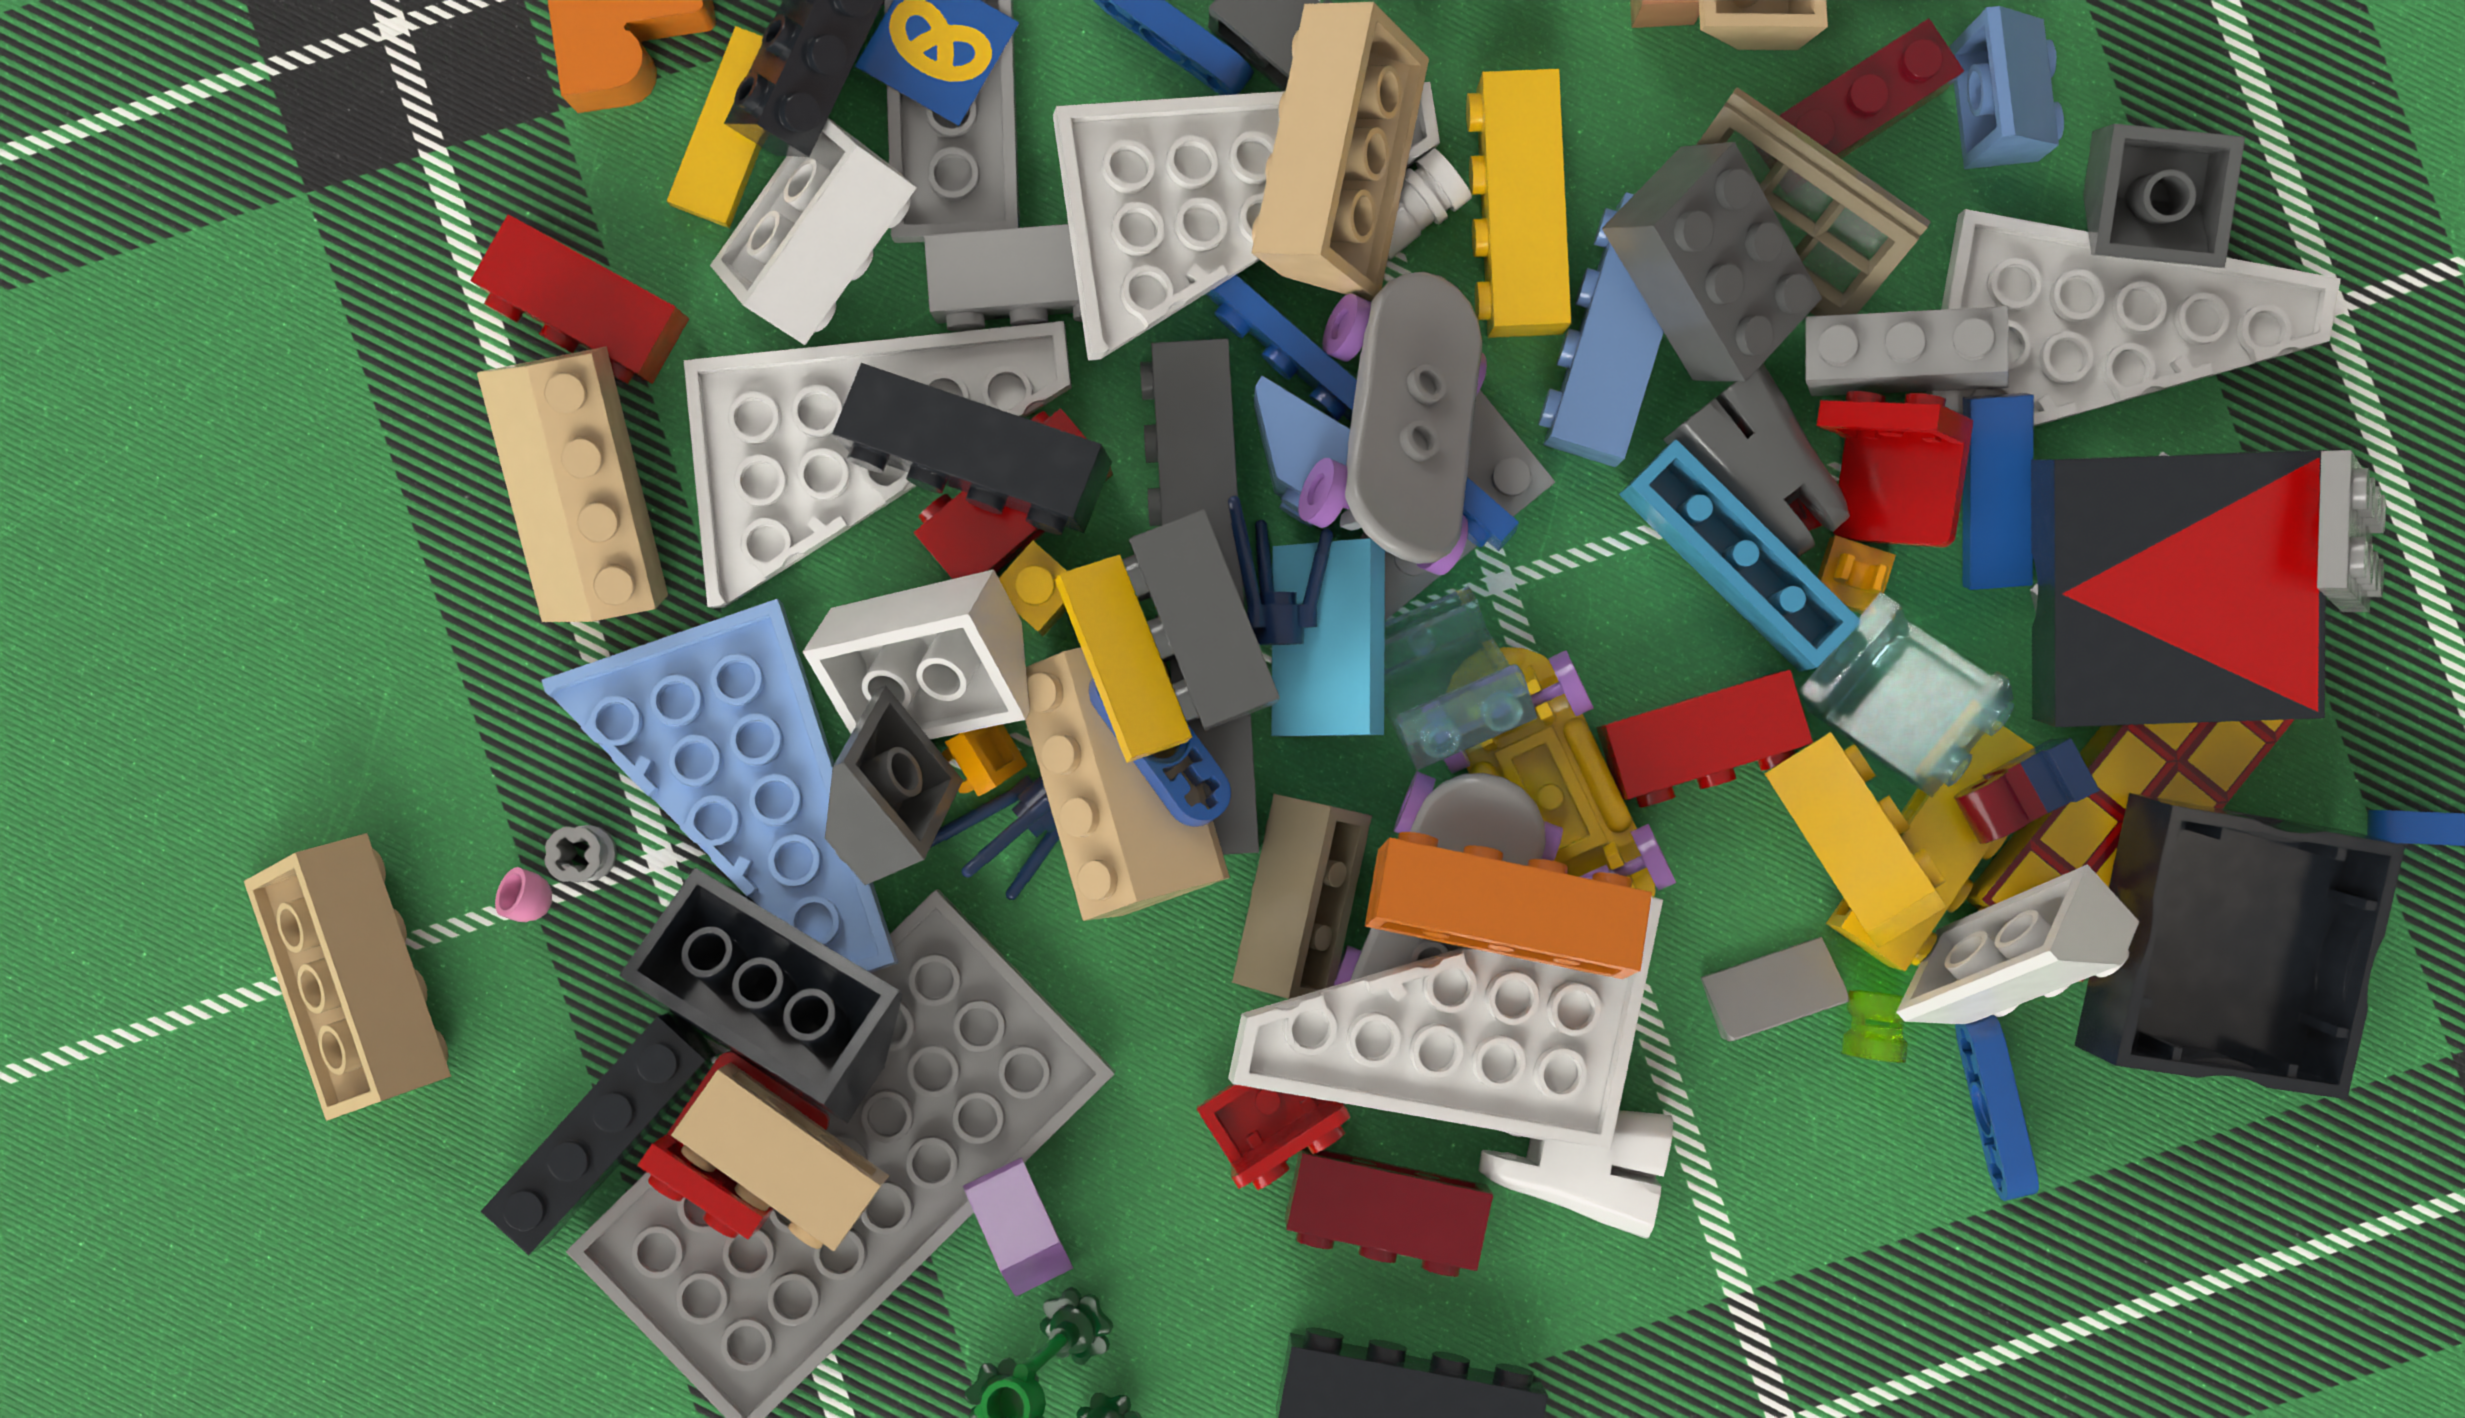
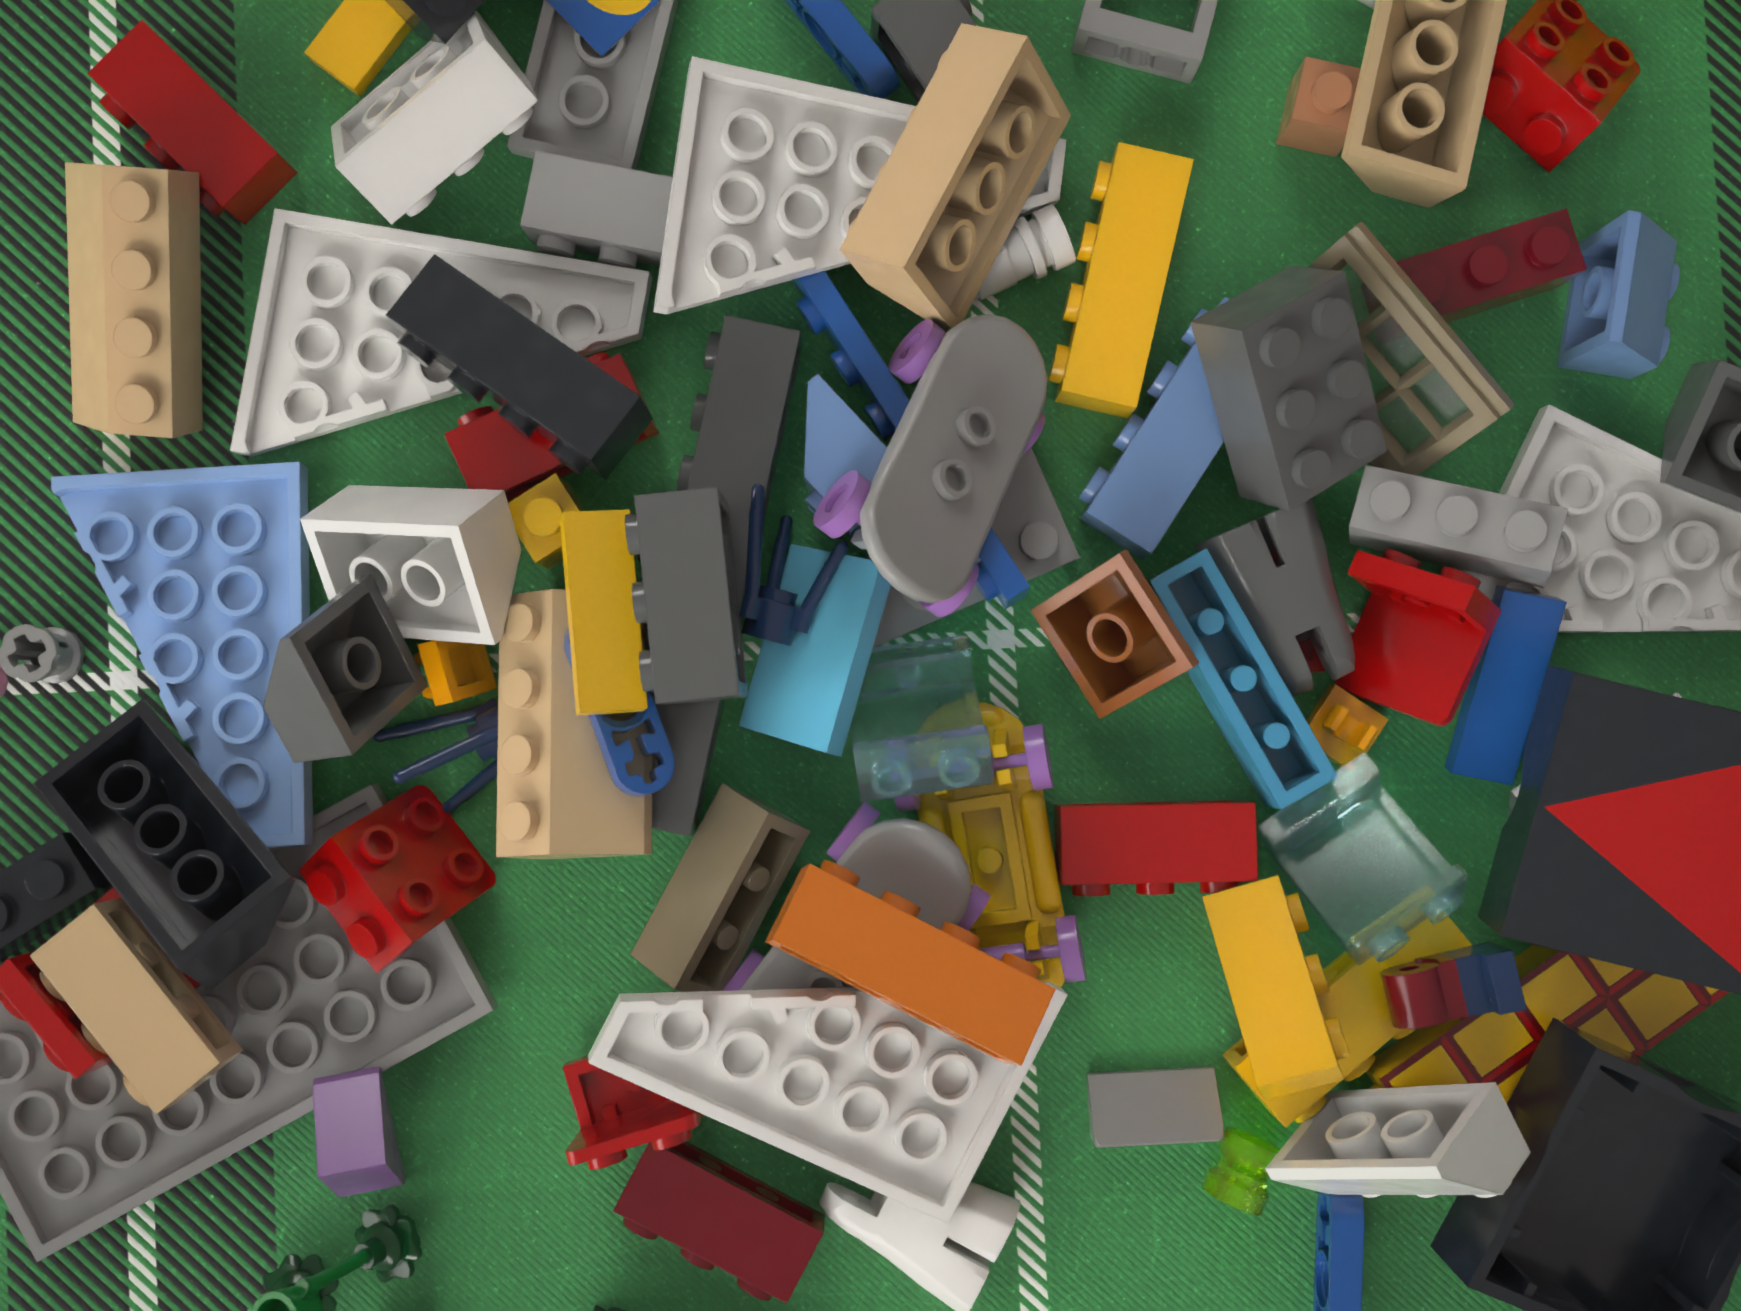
camera: 15 degrees right, 0 degrees up
(986, 970) = (397, 875): none -> red bracket
(1611, 546) = (1114, 635): none -> dark orange slope

